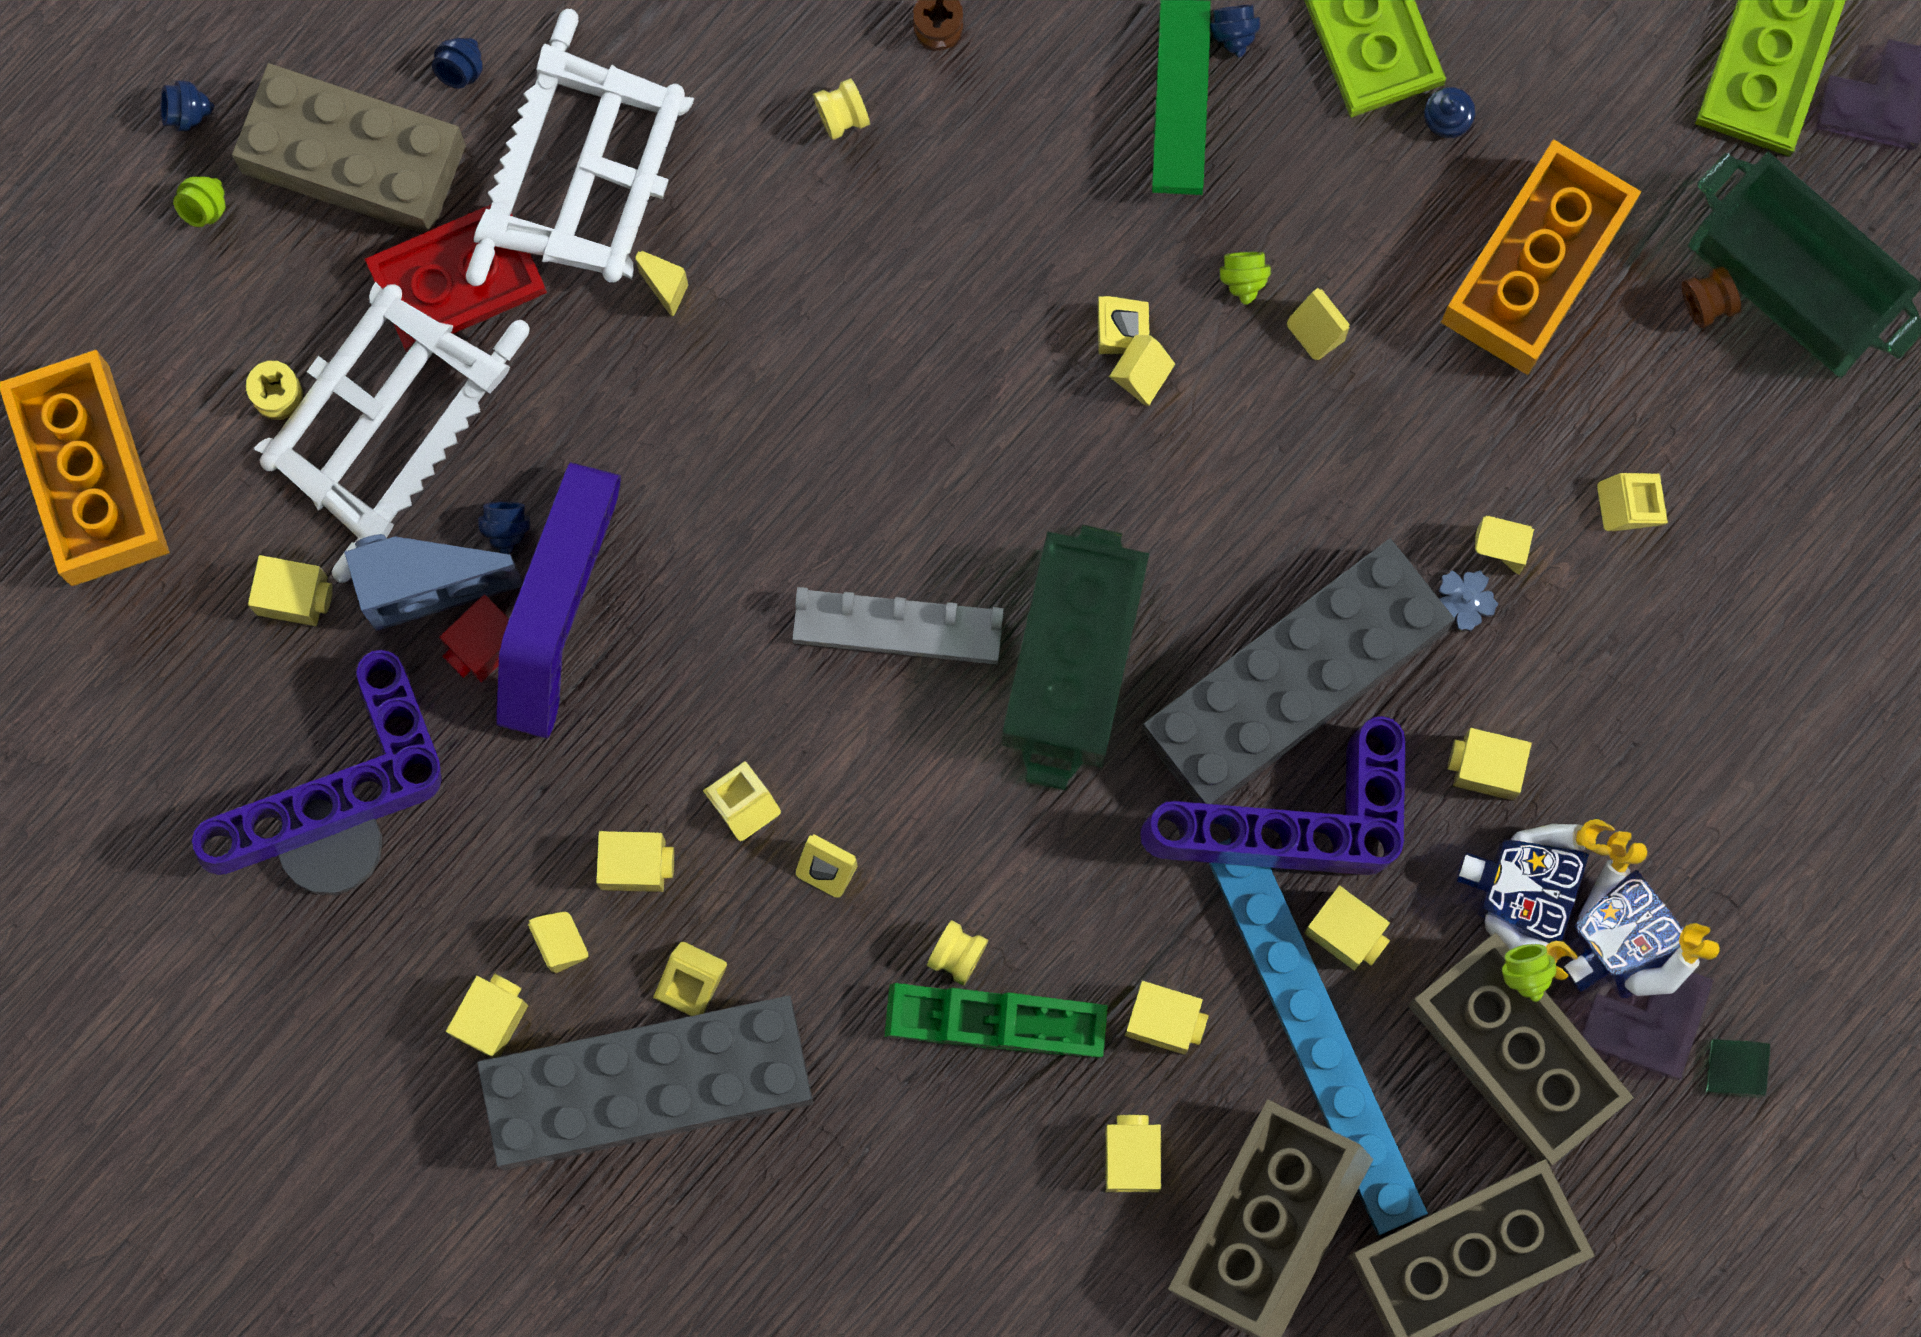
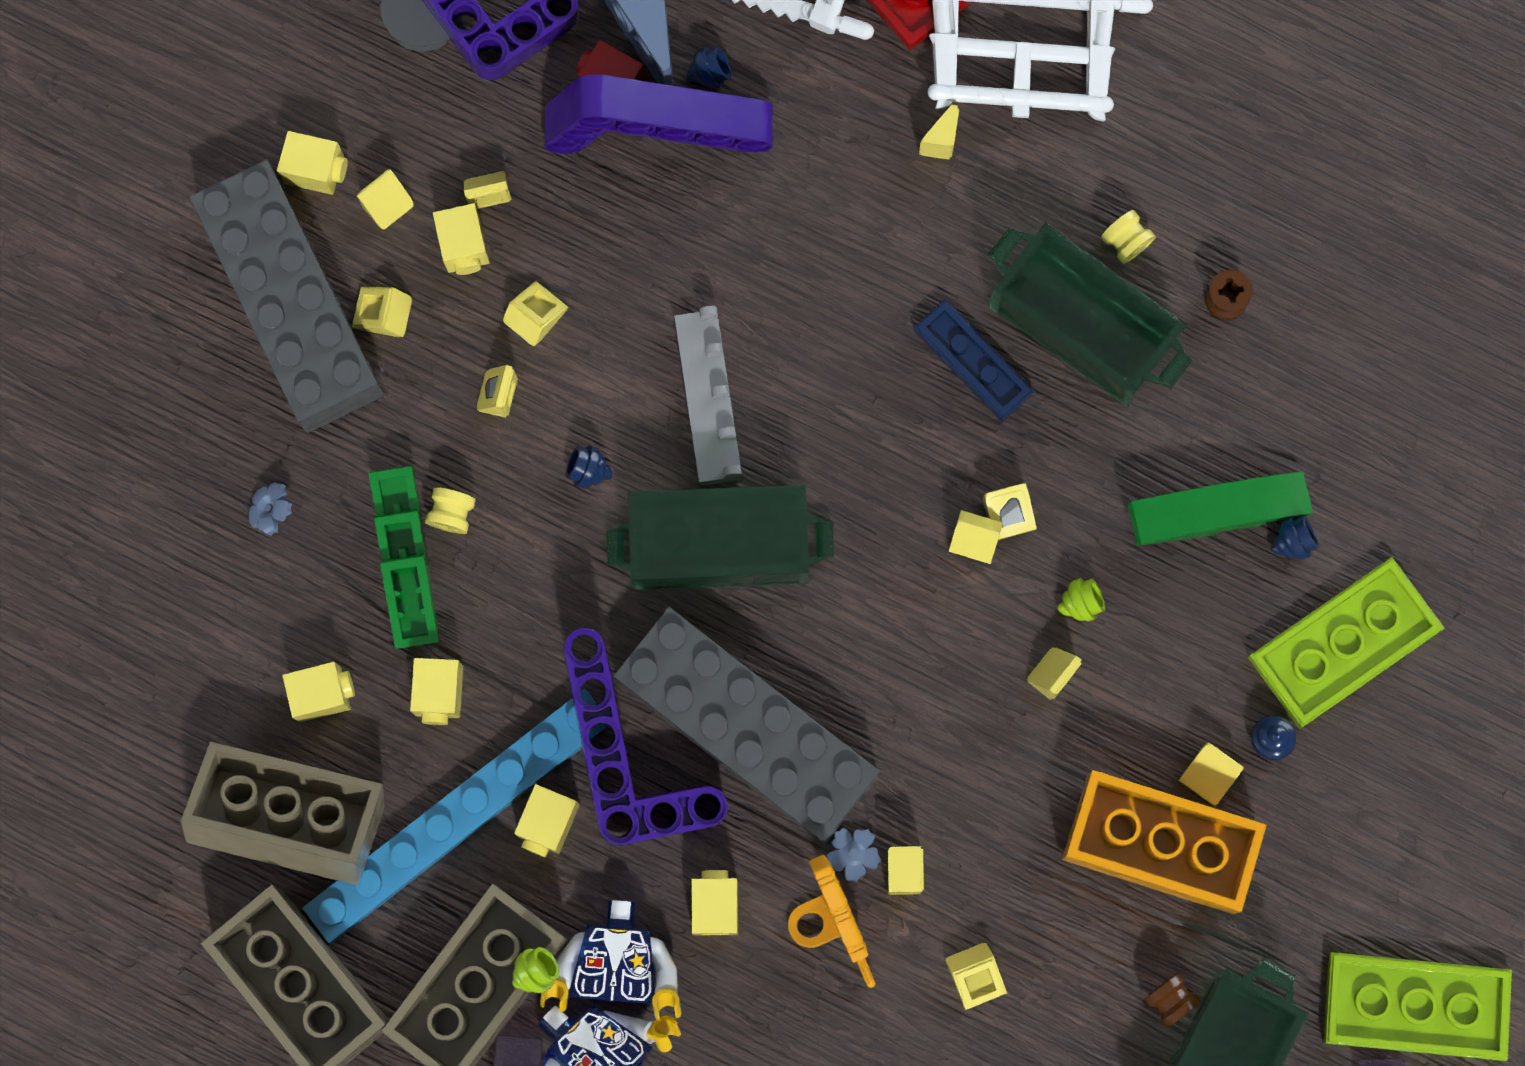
camera: 80 degrees right, 0 degrees up
(575, 819) = (487, 190): none -> light yellow slope
(897, 1165) = (269, 508): none -> sand blue plant
(924, 175) = (1086, 314): none -> clear green container
(935, 319) = (973, 360): none -> dark blue tile
(945, 784) = (587, 467): none -> dark blue plate
(1472, 189) = (1211, 774): none -> light yellow slope
(1535, 631) = (835, 915): none -> light orange piece

